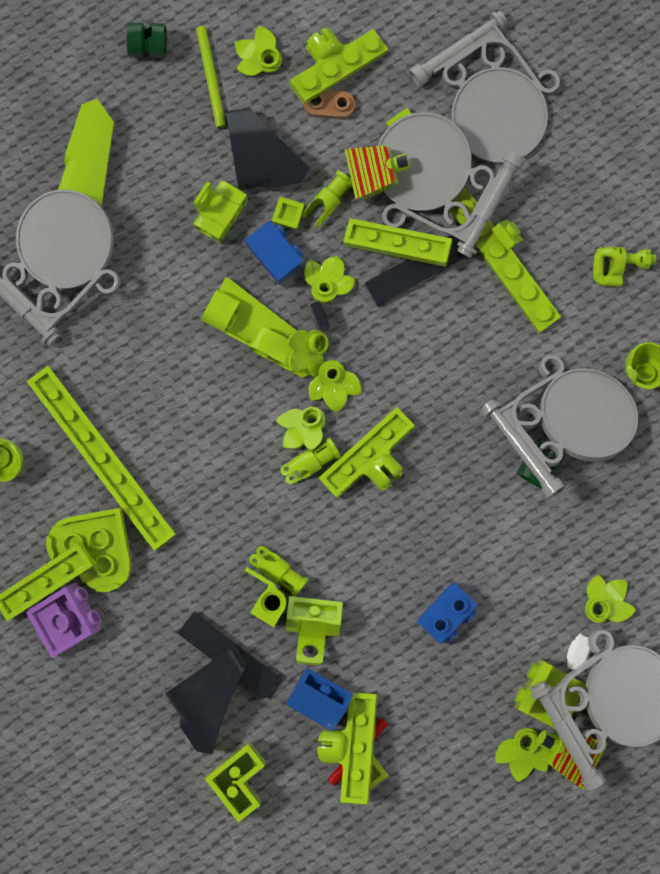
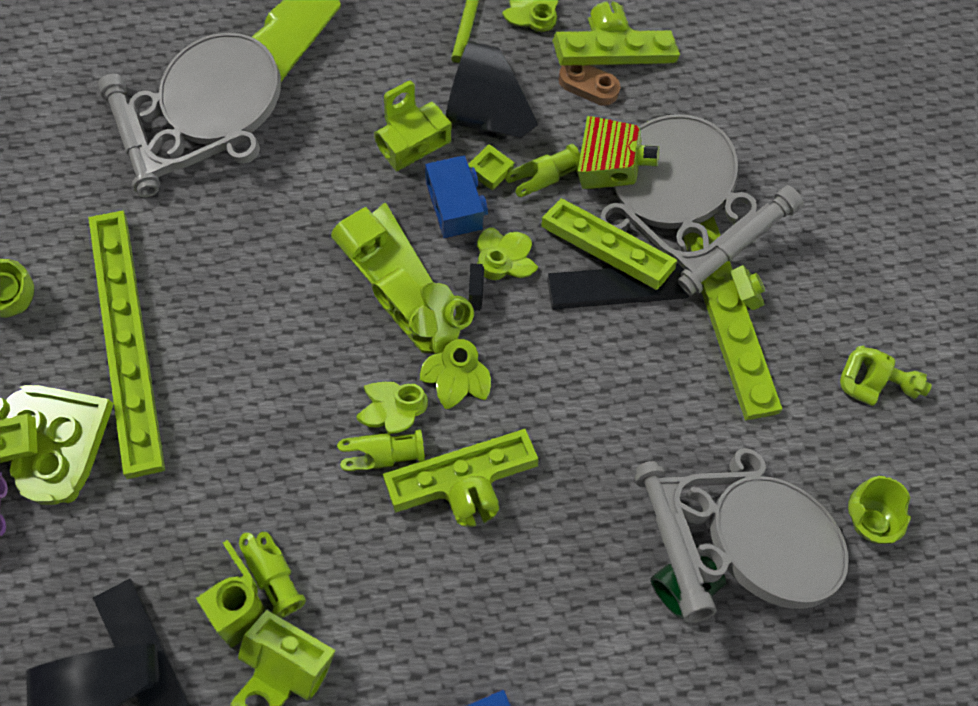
camera: 20 degrees right, 20 degrees down
(498, 105) = (785, 144): light grey piece -> none

